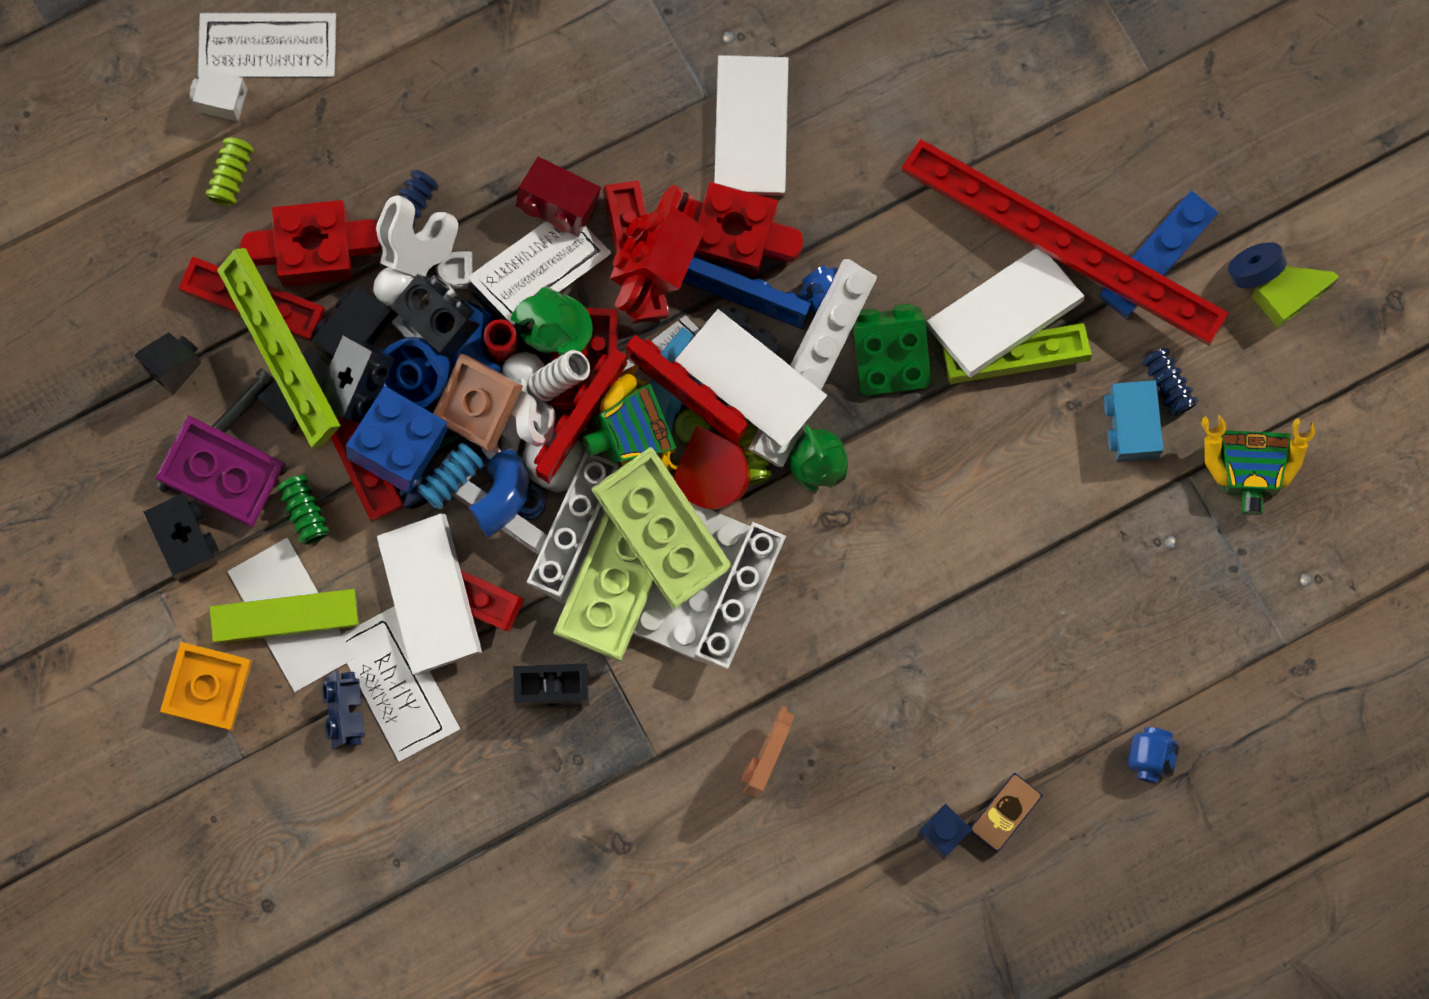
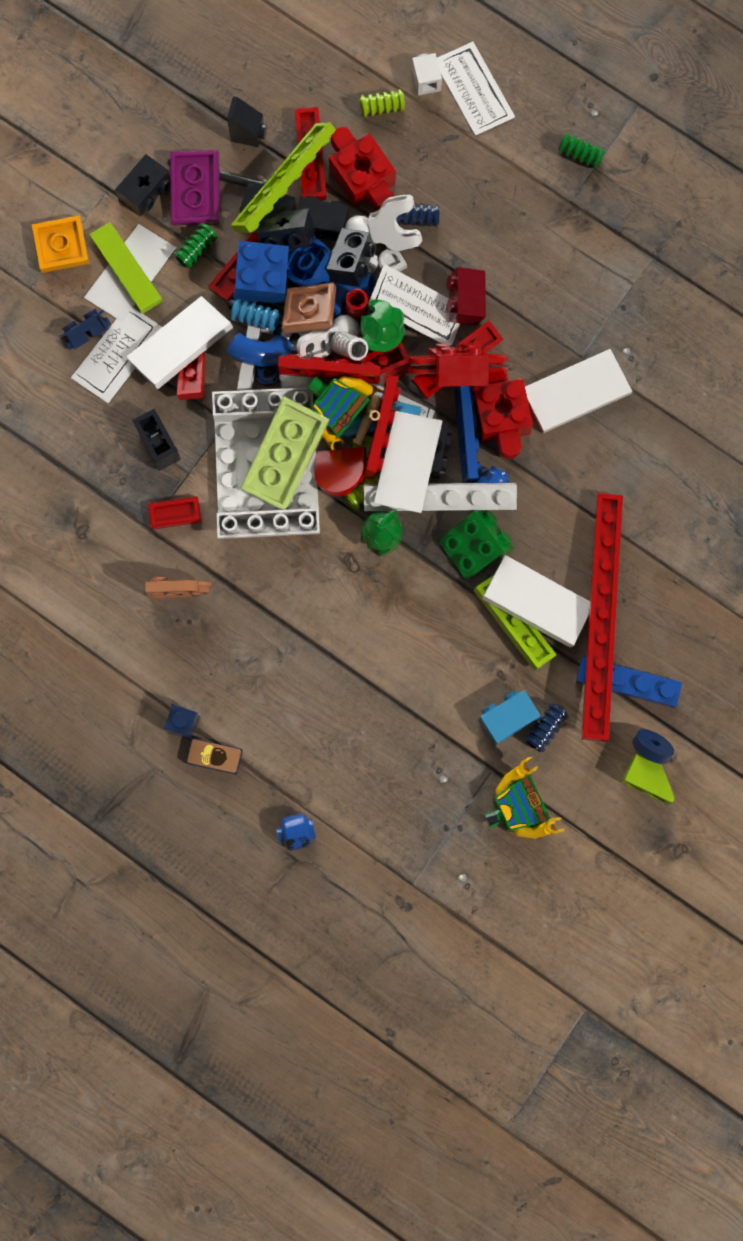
camera: 60 degrees right, 0 degrees up
(606, 595) = (226, 445): yellowish green tile -> none
(656, 711) = (174, 512): none -> red tile
(663, 396) = (370, 415): none -> light nougat piece

